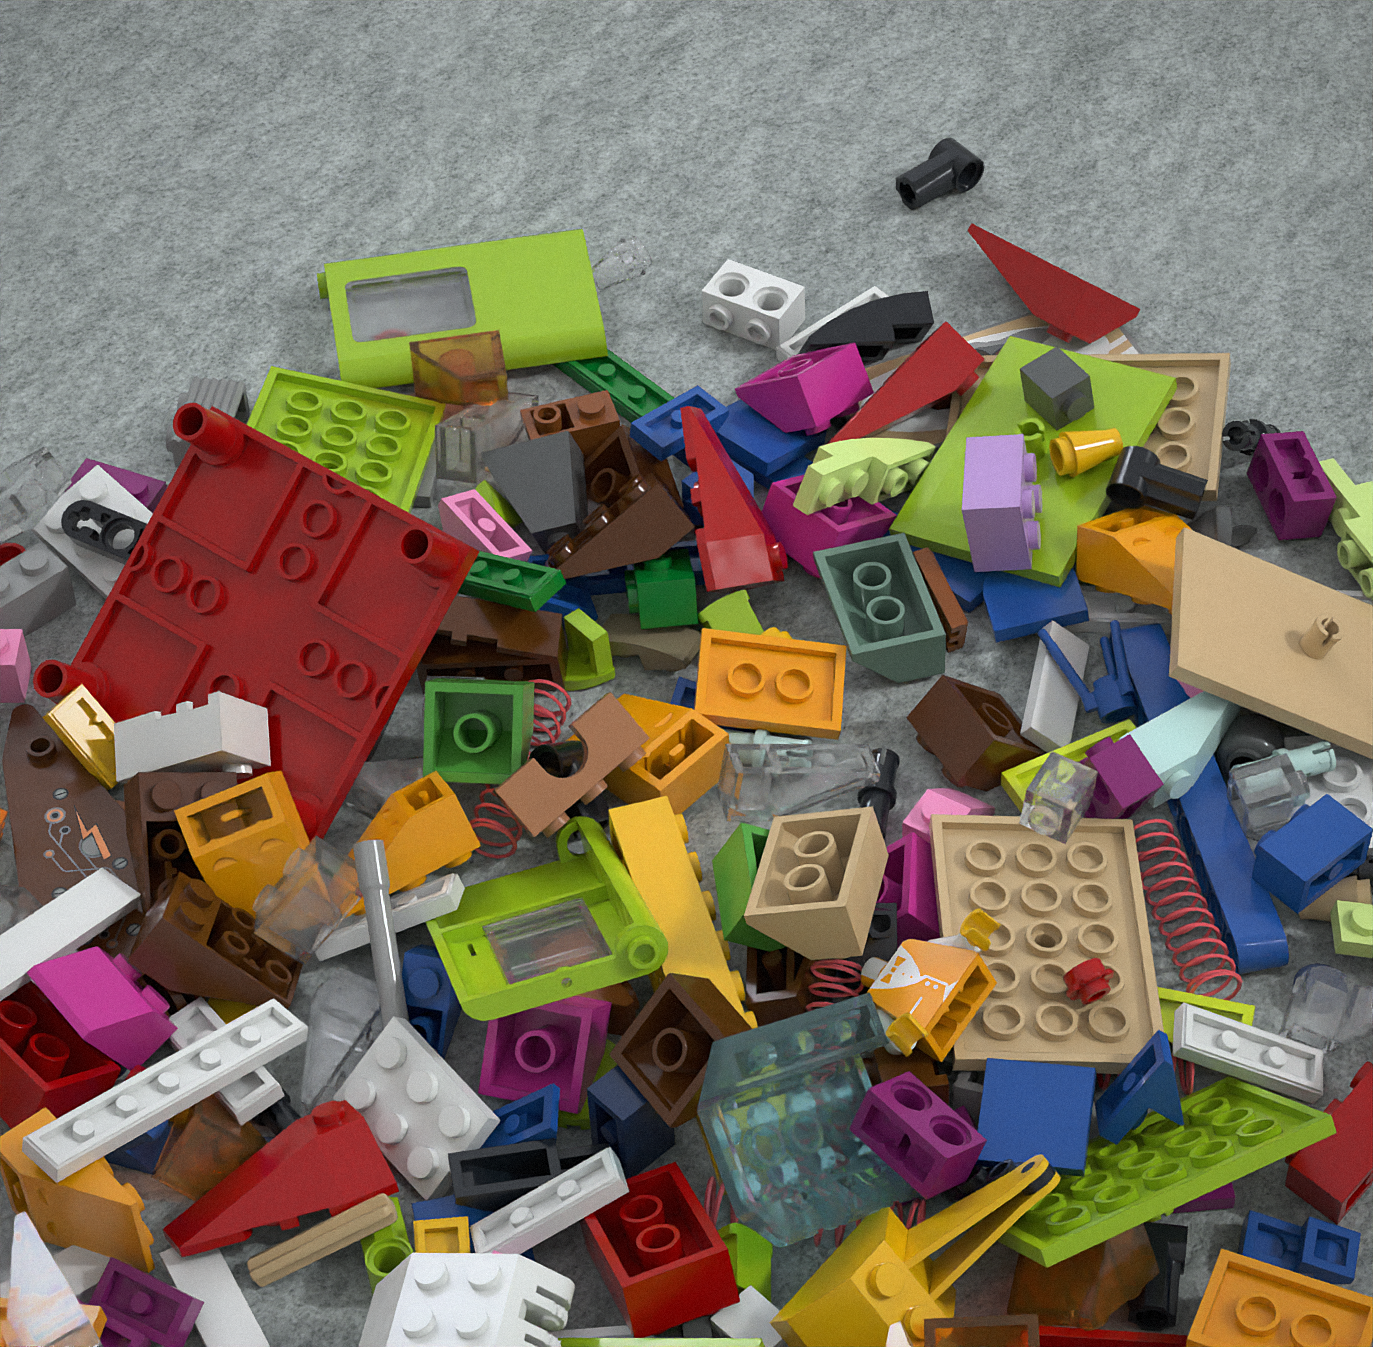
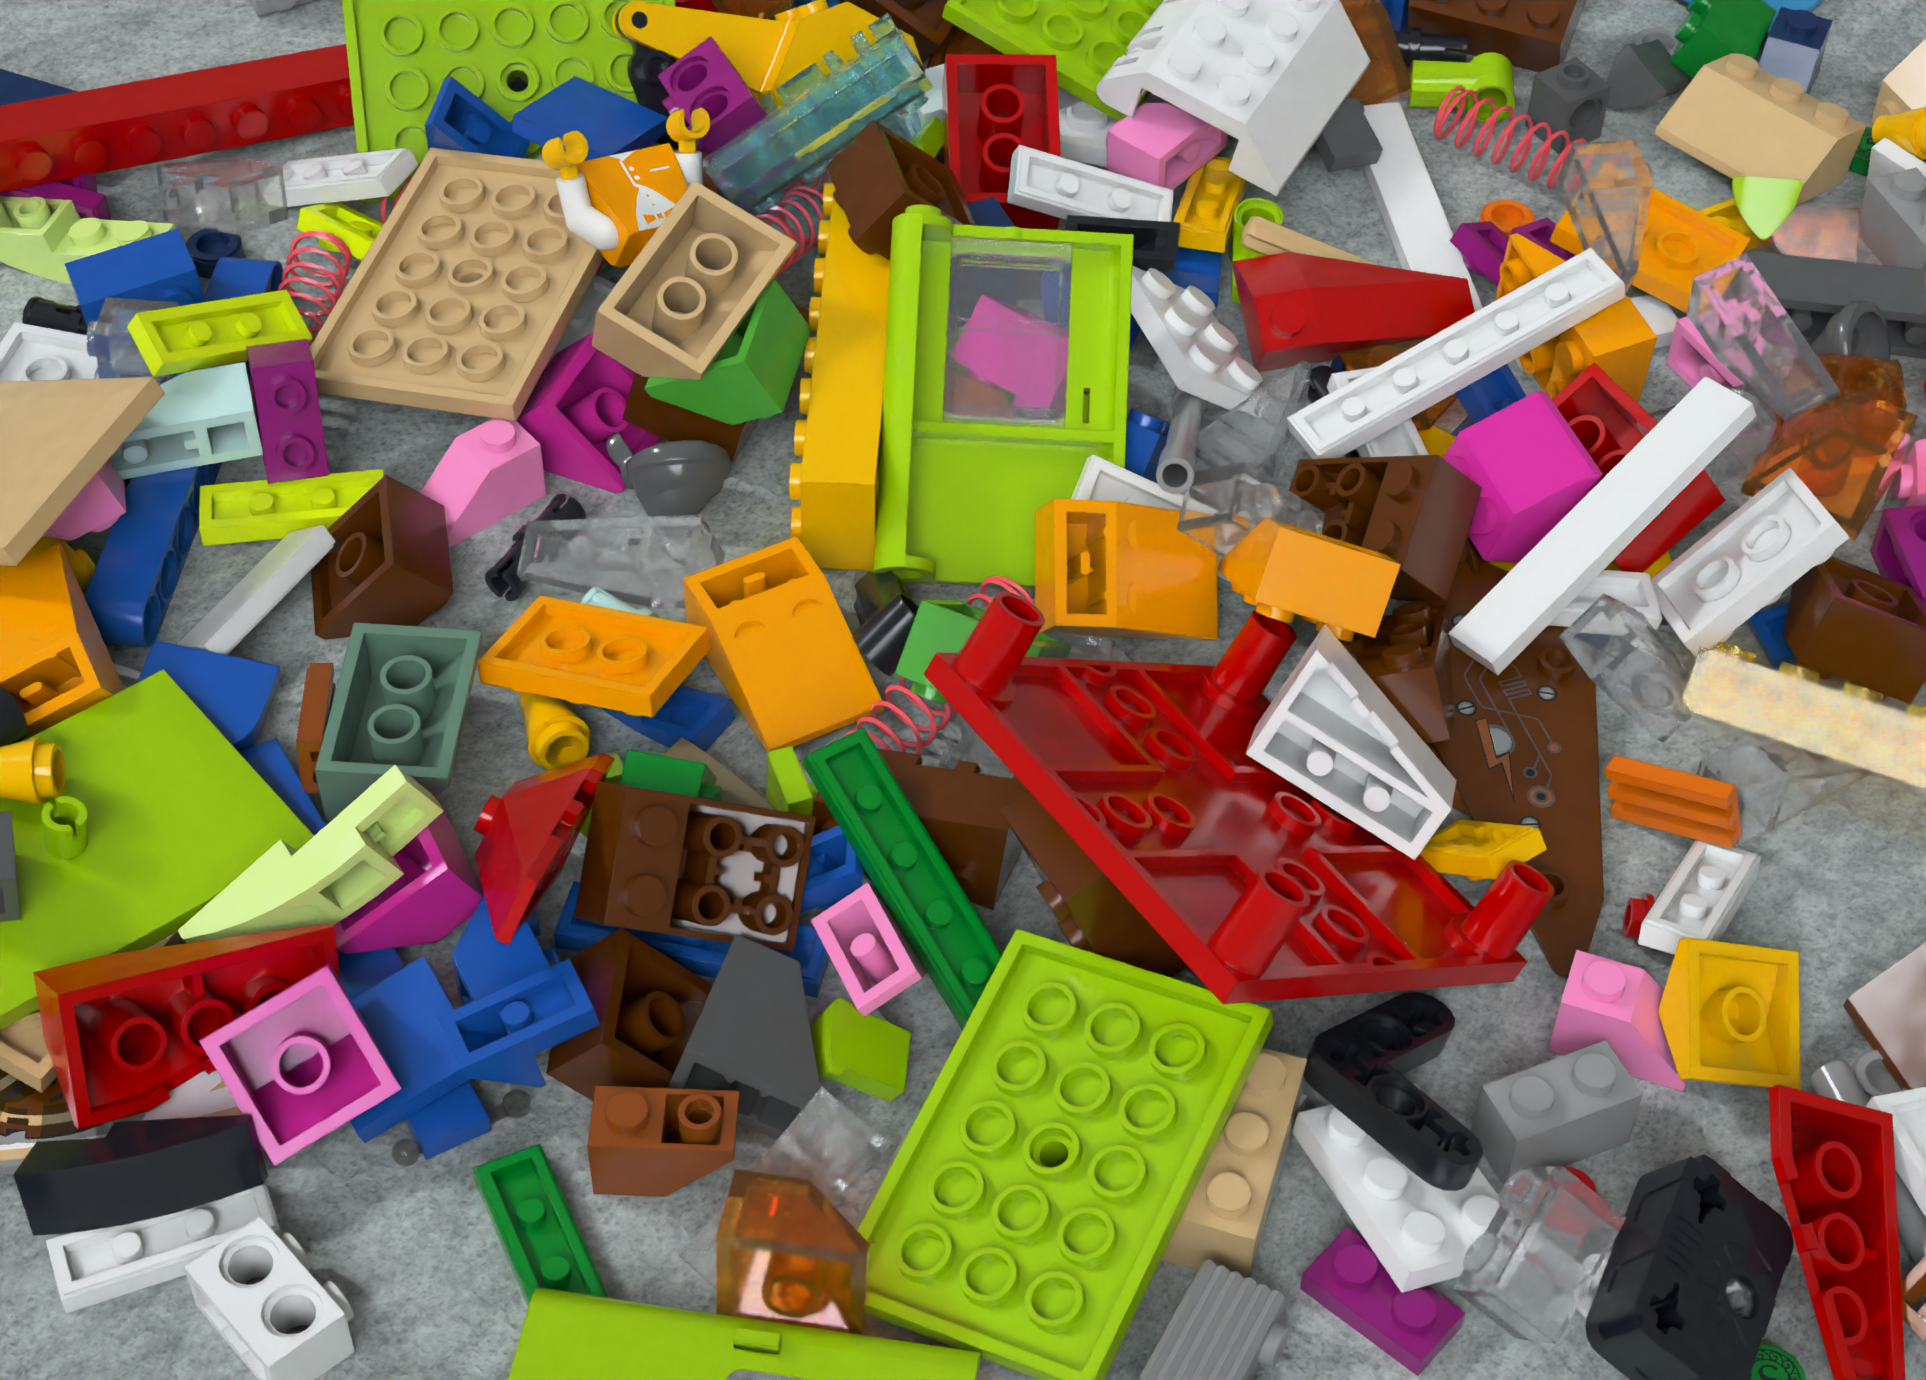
camera: 165 degrees left, 0 degrees up
(608, 741) = (901, 556): nougat arch -> none
(1001, 503) = (183, 707): lavender brick -> none
(1058, 797) = (368, 366): clear brick -> none
(1088, 981) = (463, 211): red plate -> none
(1111, 693) = (197, 563): blue plant -> none
(1193, 792) = (214, 331): none -> neon yellow plate

